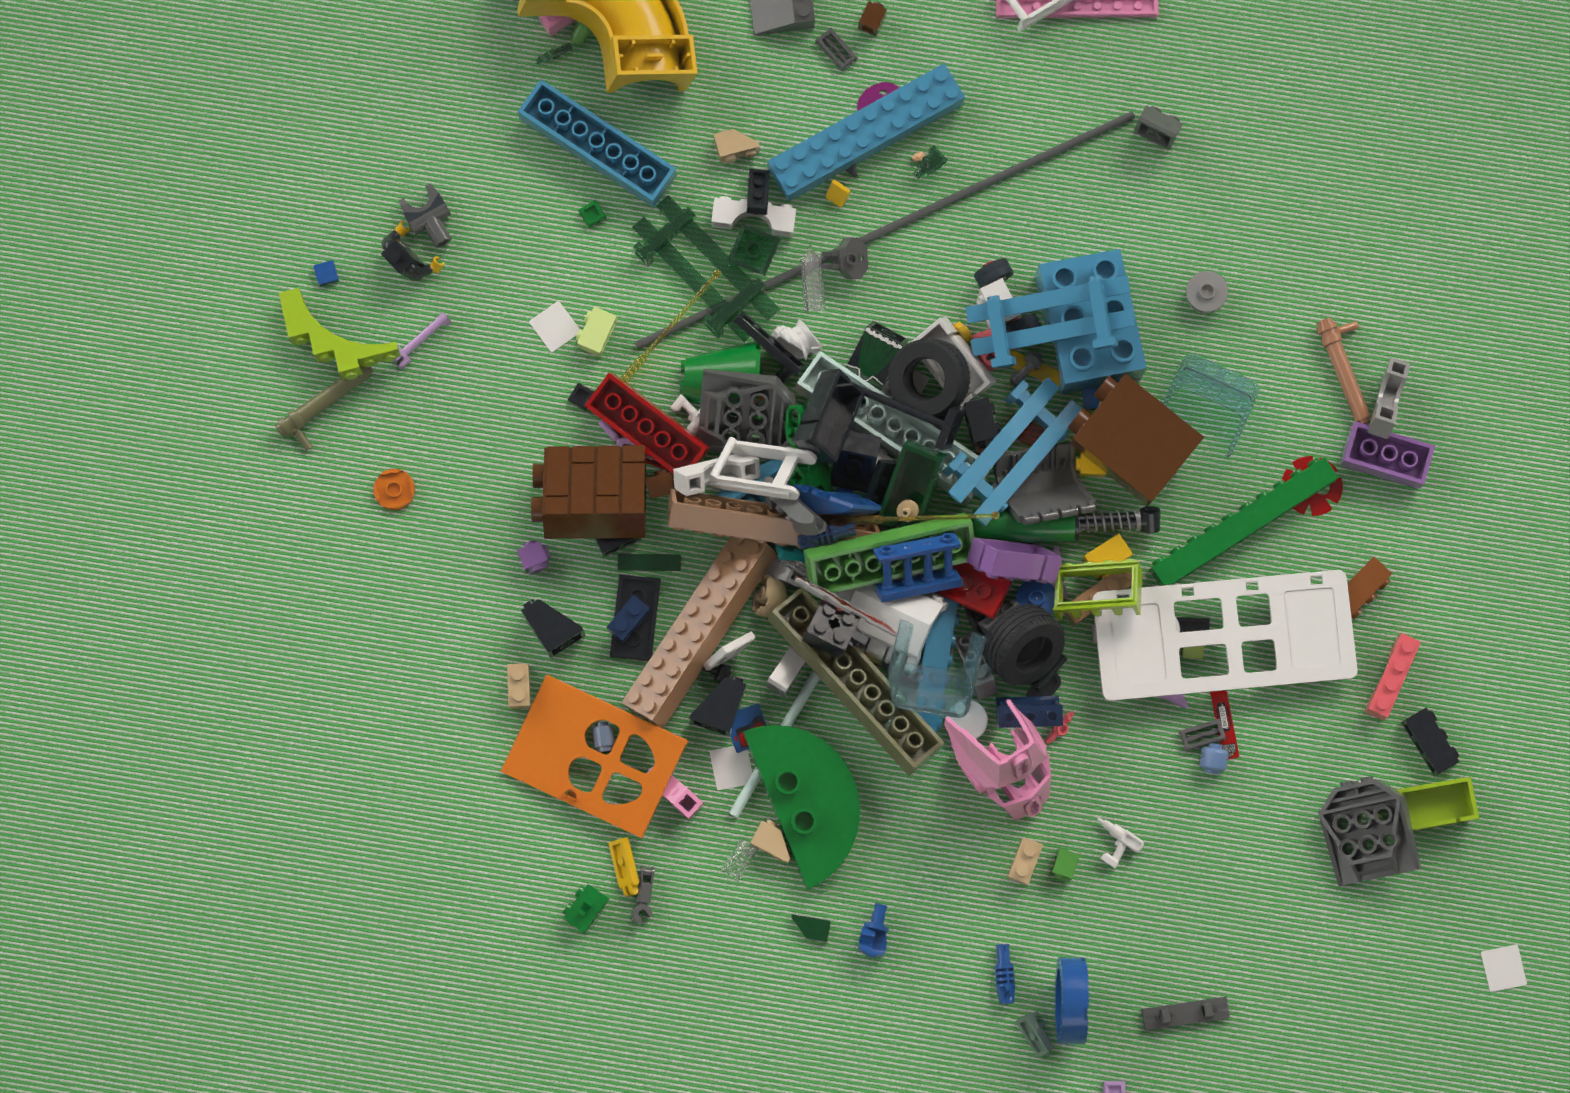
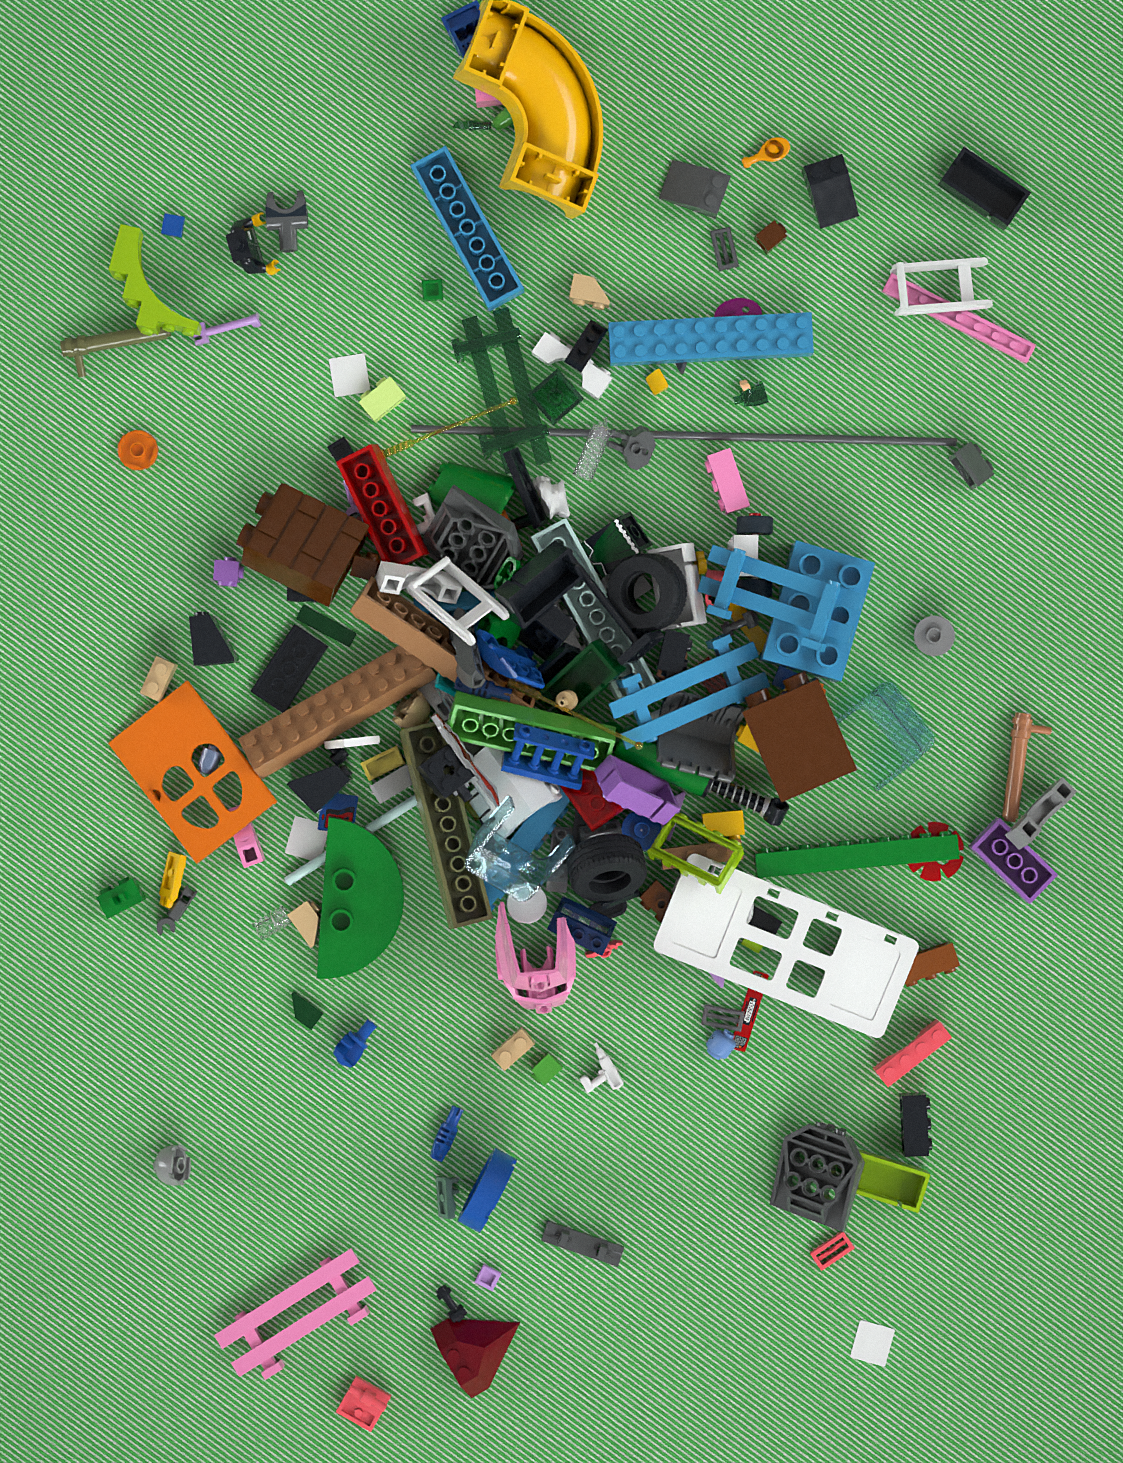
camera: 30 degrees right, 10 degrees up
(628, 619) = (280, 669): dark blue brick -> none
(766, 660) = (383, 763): none -> light yellow tile
(947, 249) = (727, 481): none -> bright pink brick
(1084, 655) = (656, 898): none -> reddish brown brick
(1420, 879) = (850, 1247): none -> coral tile

